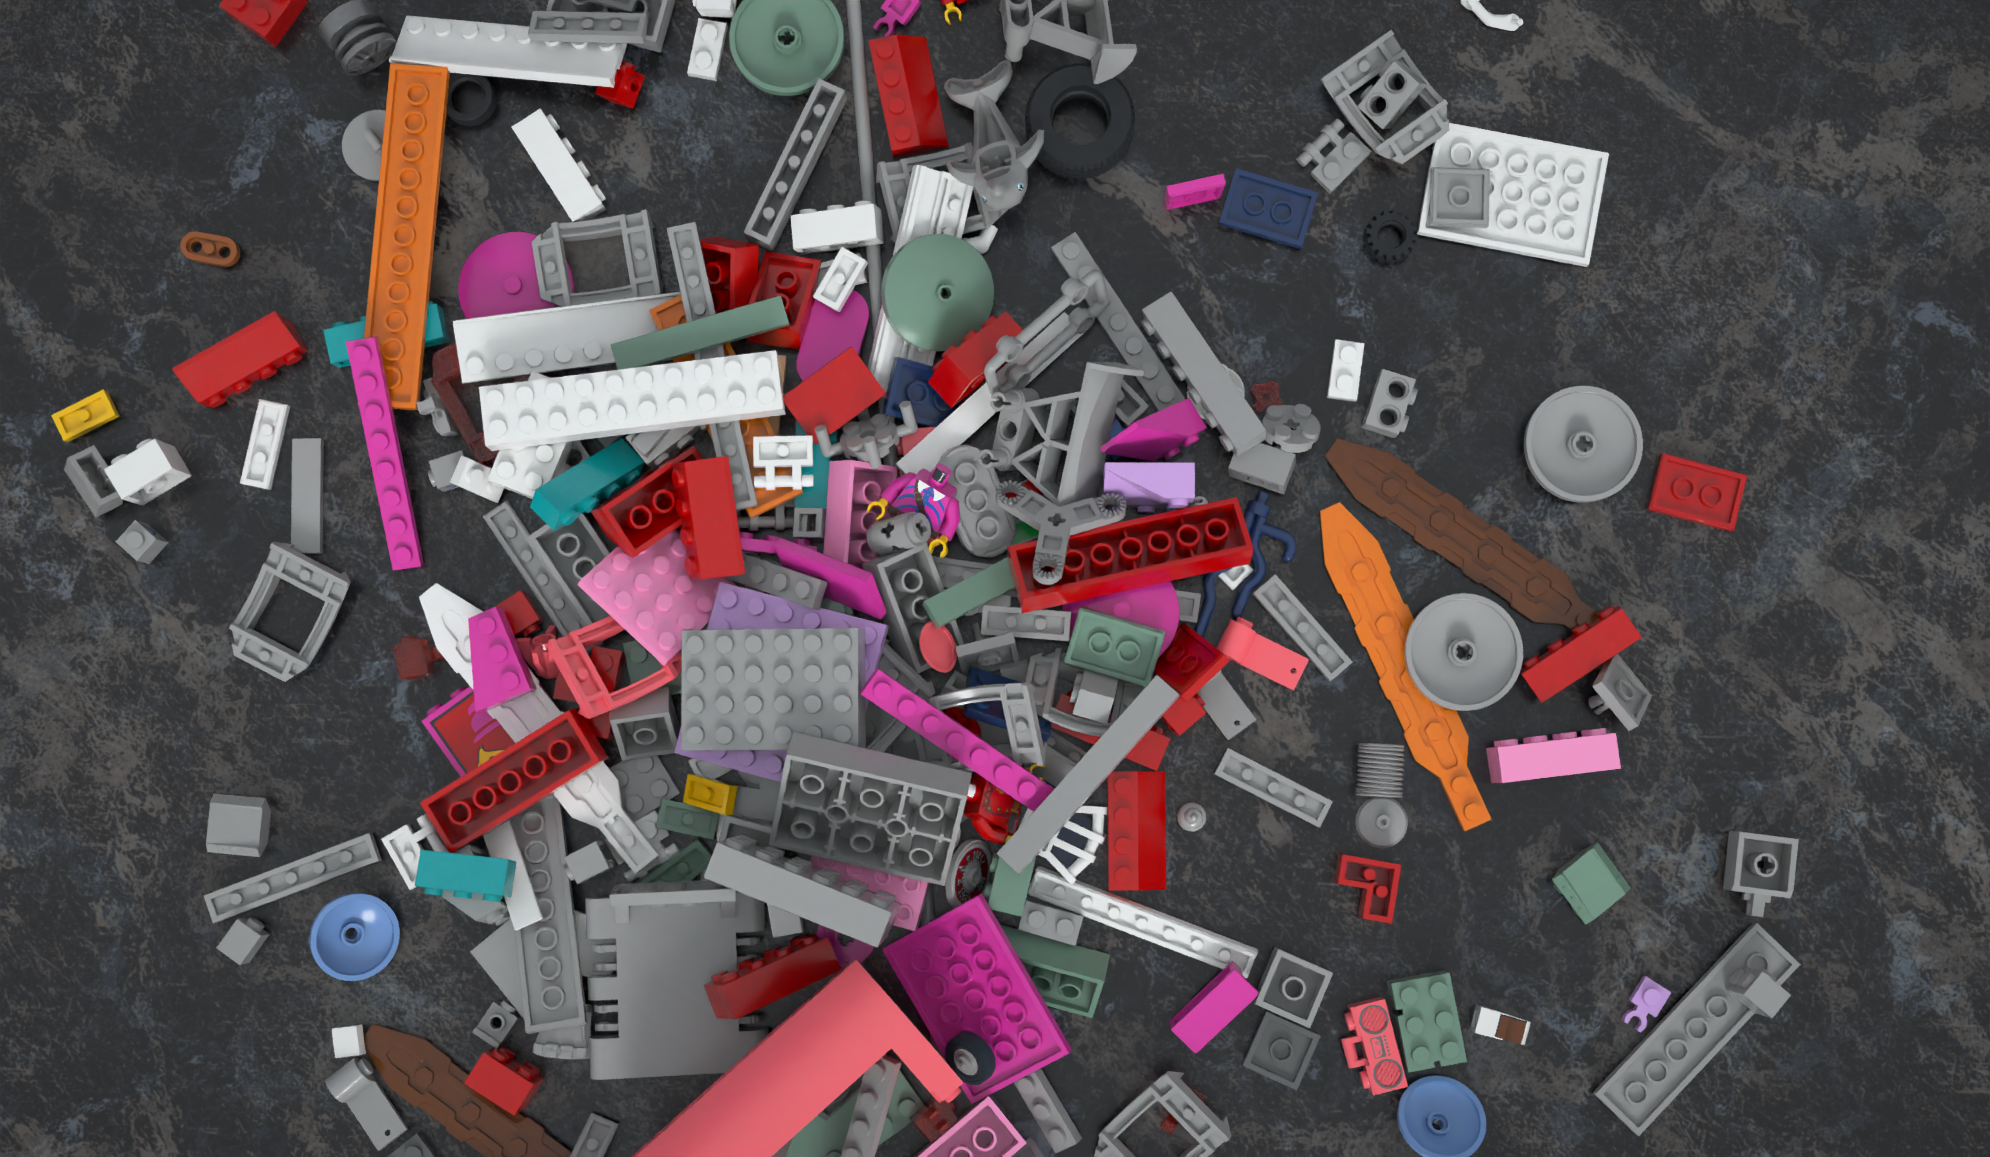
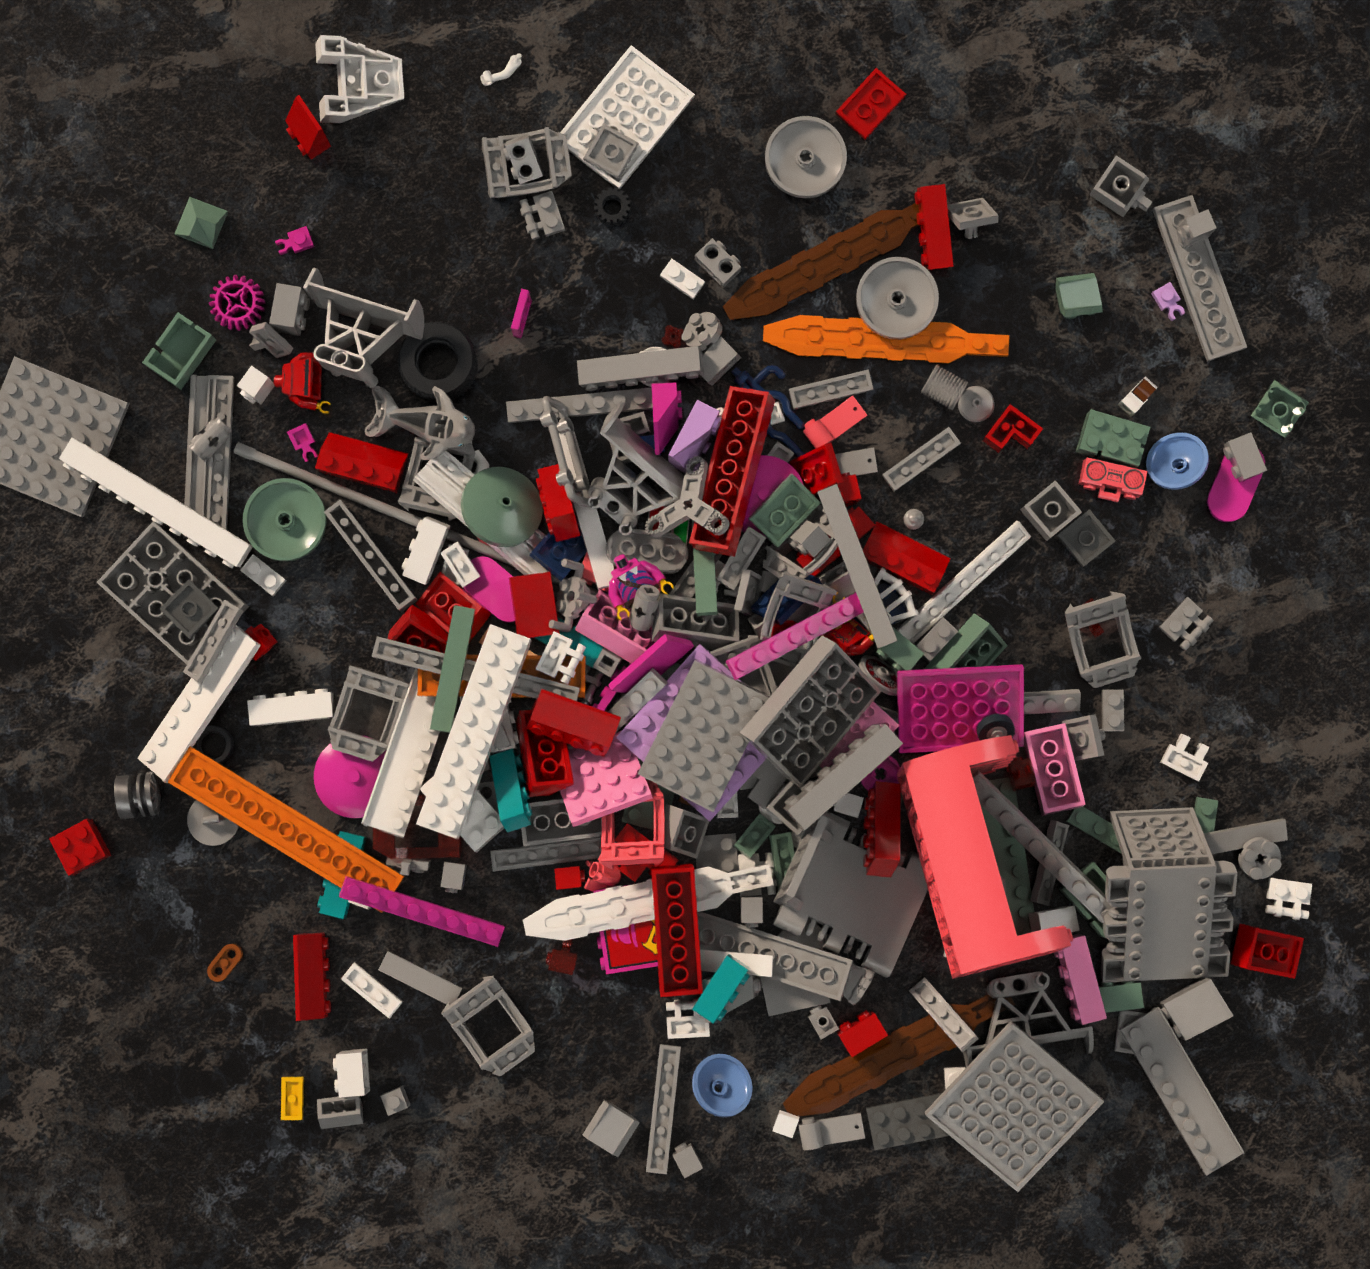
camera: 70 degrees left, 0 degrees up
(474, 478) = (468, 861): white plate -> none
(496, 661) = (595, 903): dark pink wedge -> none
(710, 794) = (747, 812): yellow plate -> none
(938, 647) = (729, 620): coral piece -> none
(1213, 1007) = (1039, 565): dark pink panel -> none
(1268, 208) = (554, 273): dark blue plate -> none
(1554, 757) = (989, 281): bright pink brick -> none

